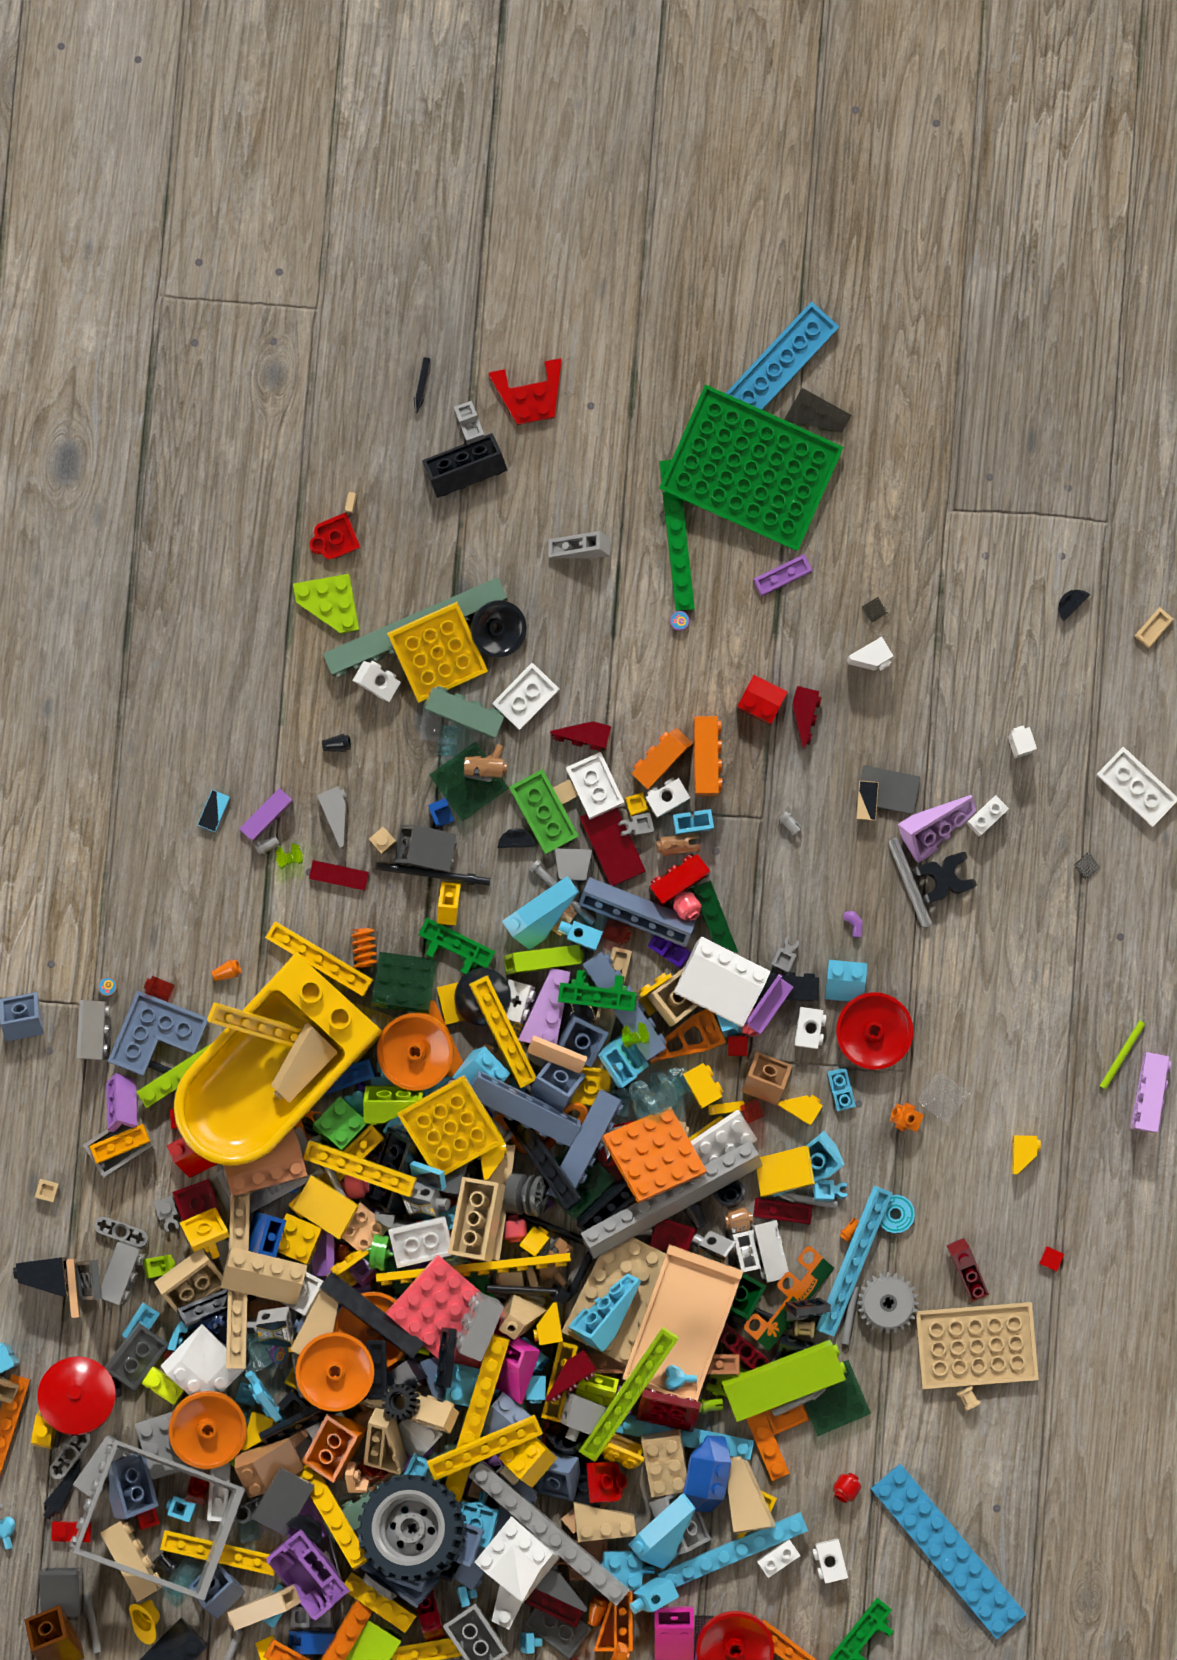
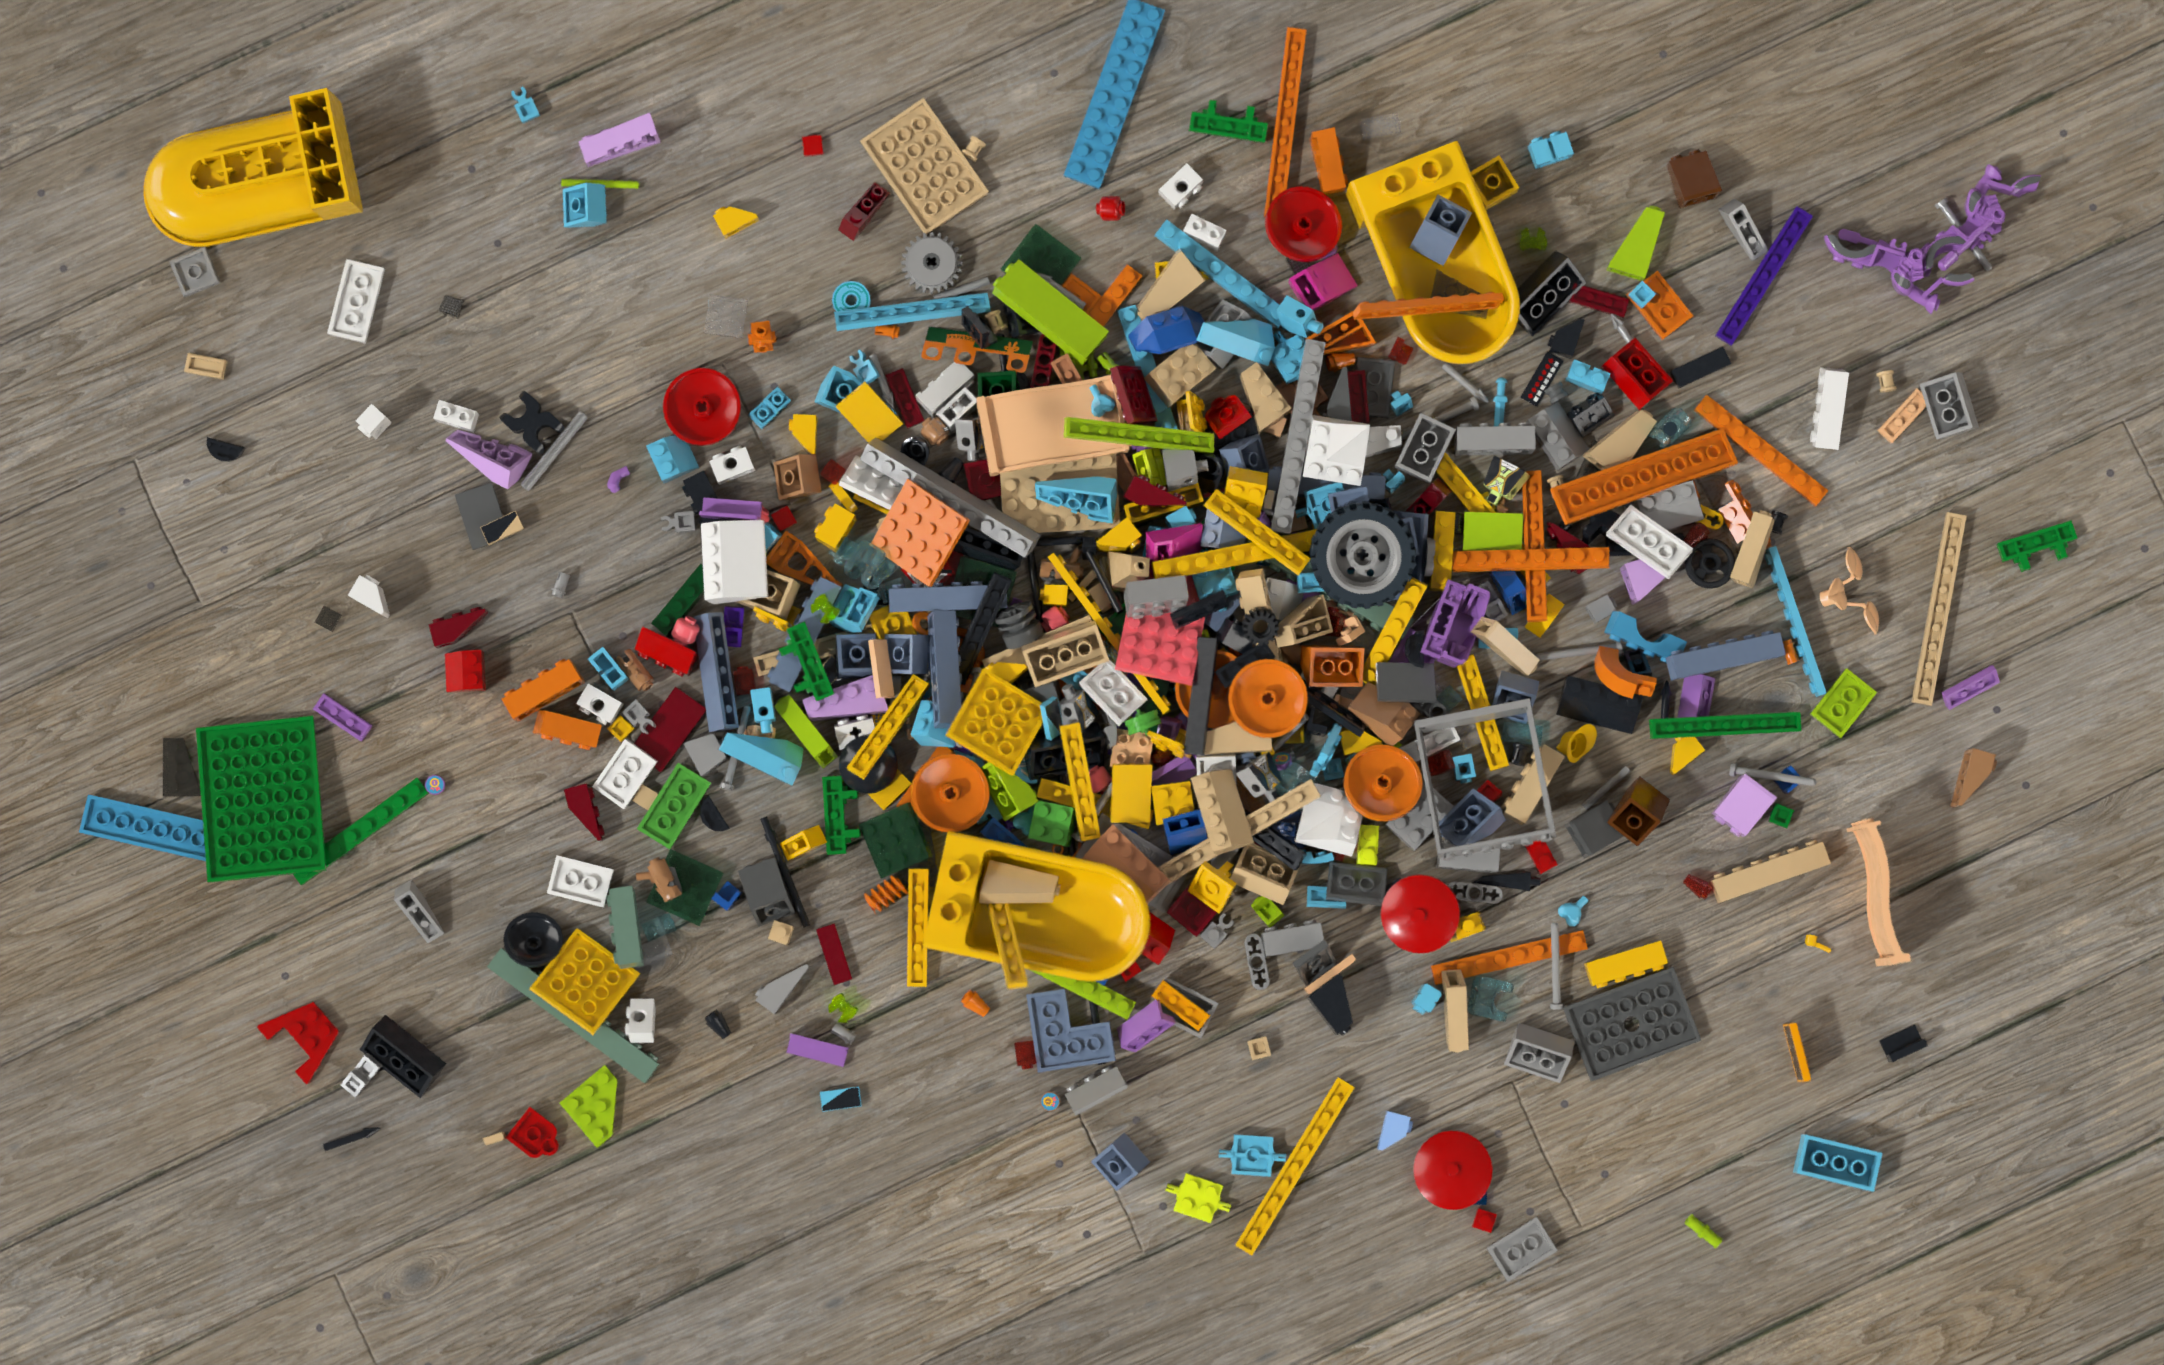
camera: 120 degrees left, 0 degrees up
(1110, 1030) = (584, 205): none -> medium azure slope

